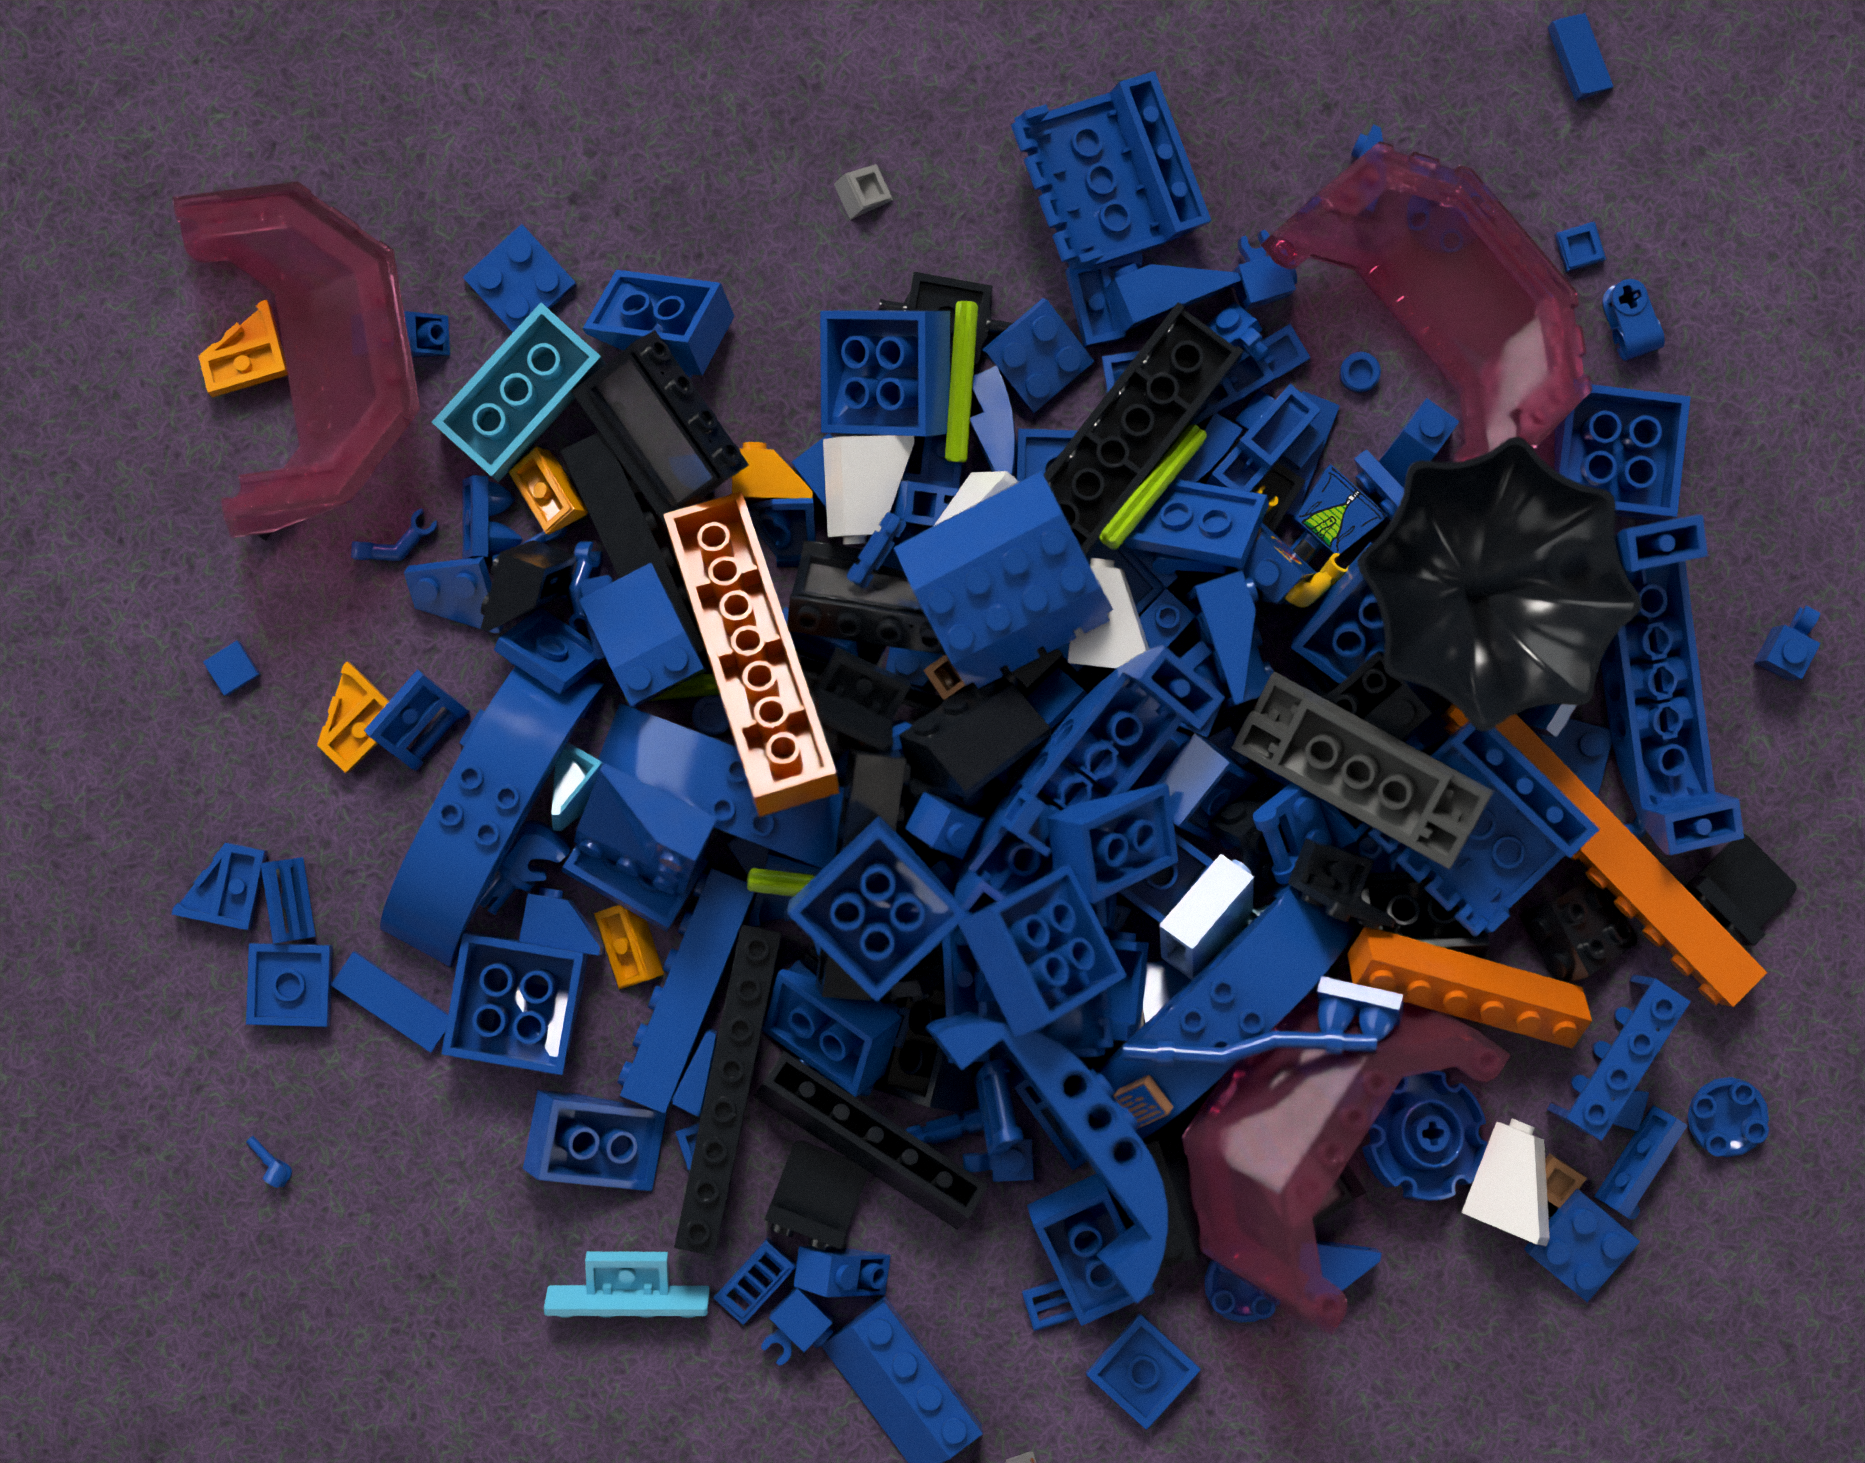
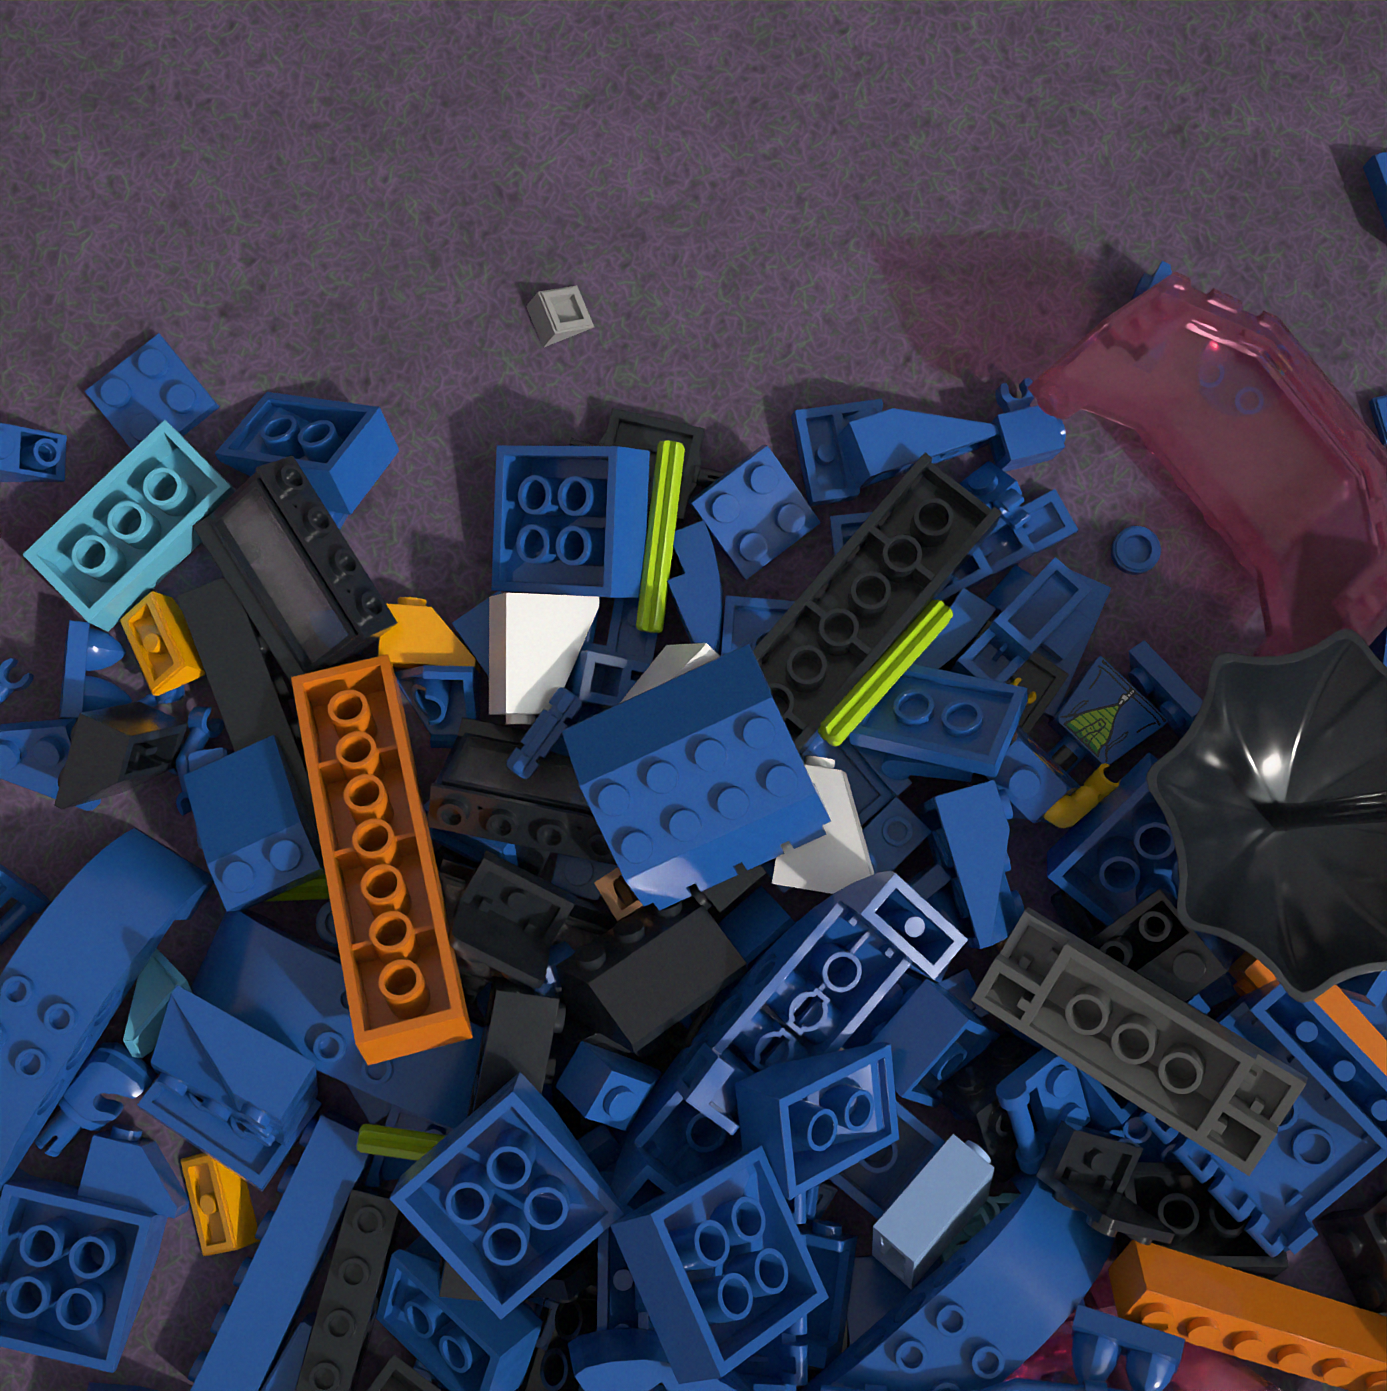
camera: 10 degrees right, 5 degrees down
(548, 650) = (140, 836): blue plate -> none
(1111, 173) = (850, 304): blue slope -> none
(1418, 439) = (1206, 632): blue slope -> none

